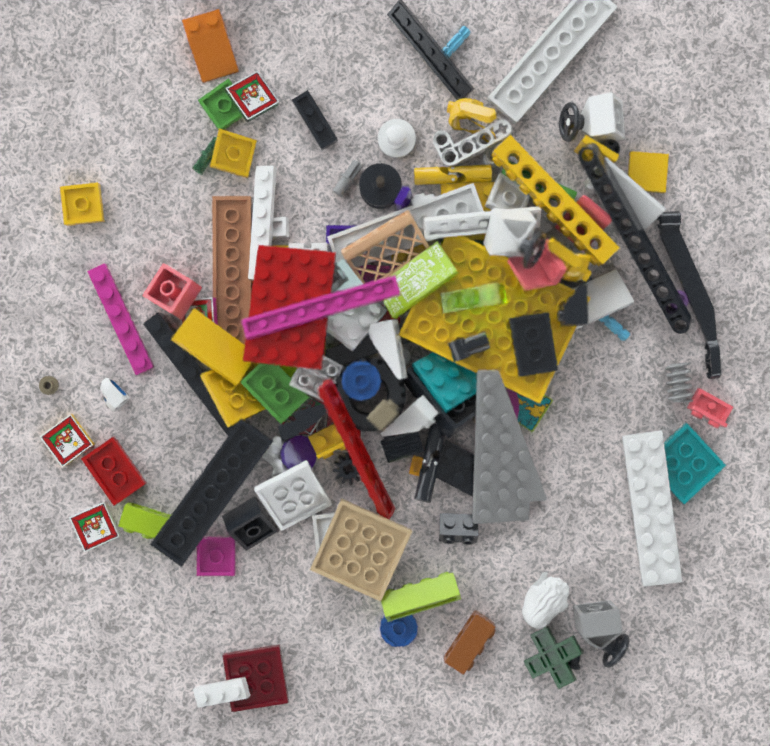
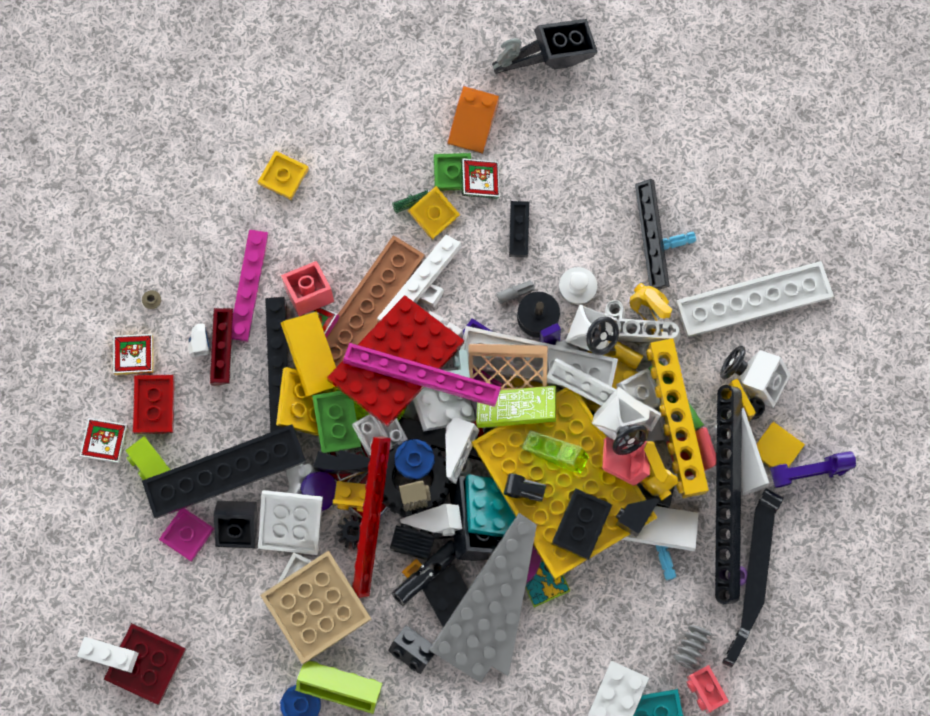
camera: 30 degrees right, 15 degrees down
(134, 386) = (221, 346): none -> dark red slope
(438, 172) = (593, 331): none -> piece
(703, 157) = (833, 465): none -> dark purple piece

